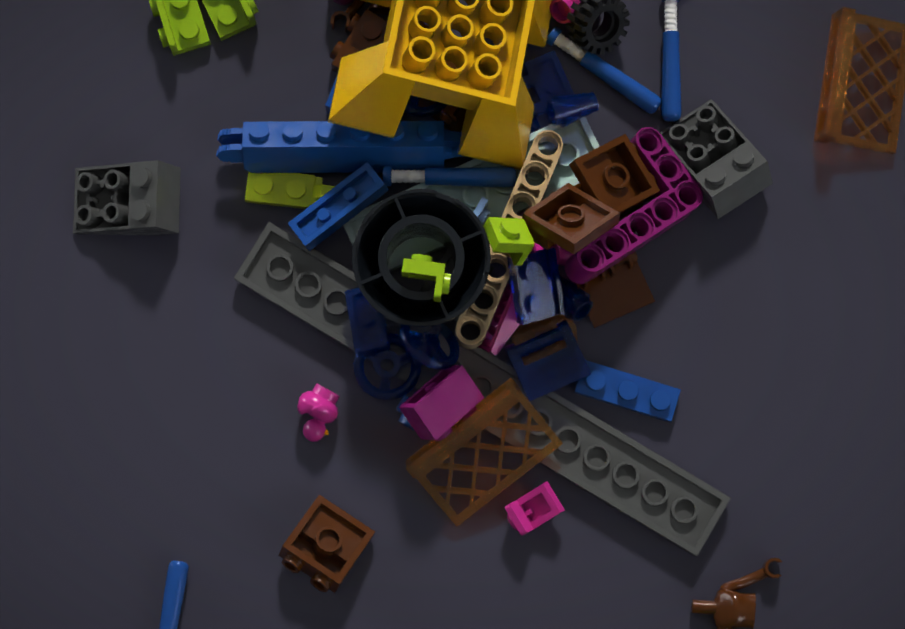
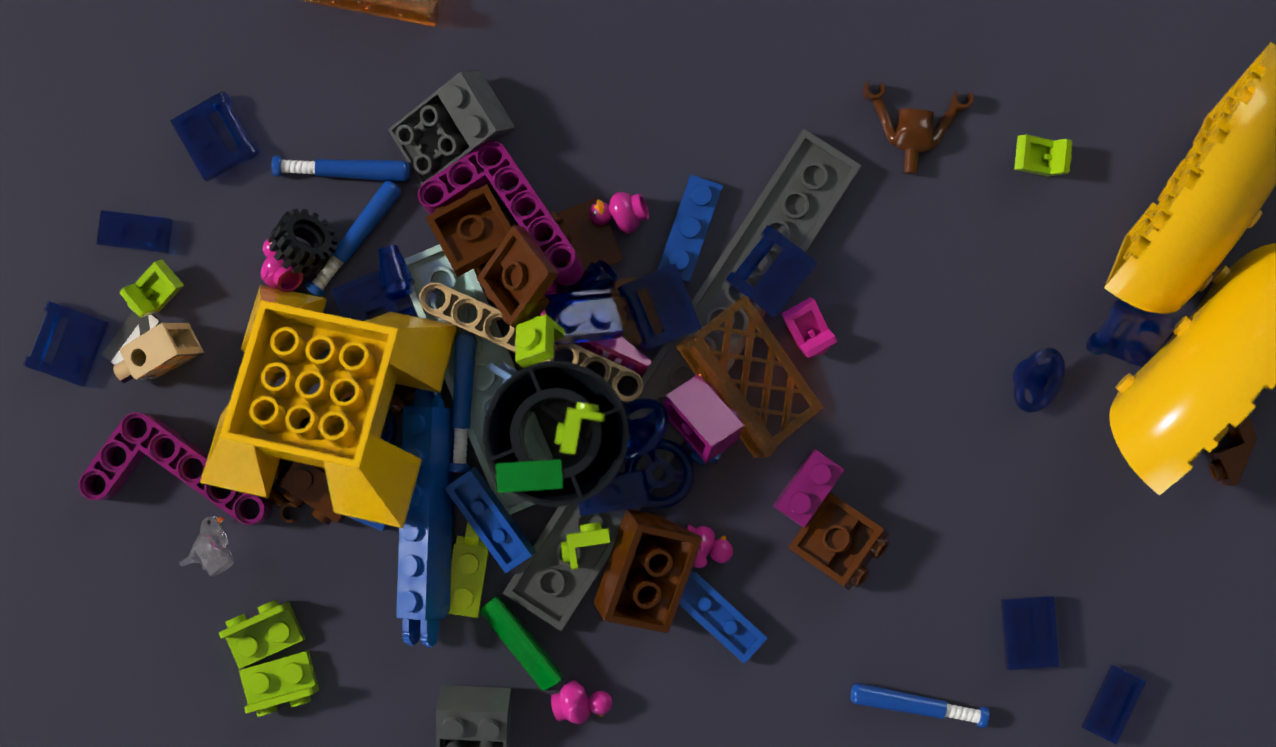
camera: 85 degrees left, 5 degrees up
(162, 294) = (574, 705): none -> dark pink animal
(222, 242) = (521, 643): none -> green slope
(252, 427) = (721, 618): none -> blue plate
(292, 356) = (646, 572): none -> reddish brown slope
(326, 300) = (589, 535): none -> lime bracket
(377, 511) = (808, 488): none -> magenta brick
(380, 233) = (529, 475): none -> green sticker
(579, 476) = (780, 279): none -> clear blue plate
(643, 325) = (625, 209): none -> dark pink animal

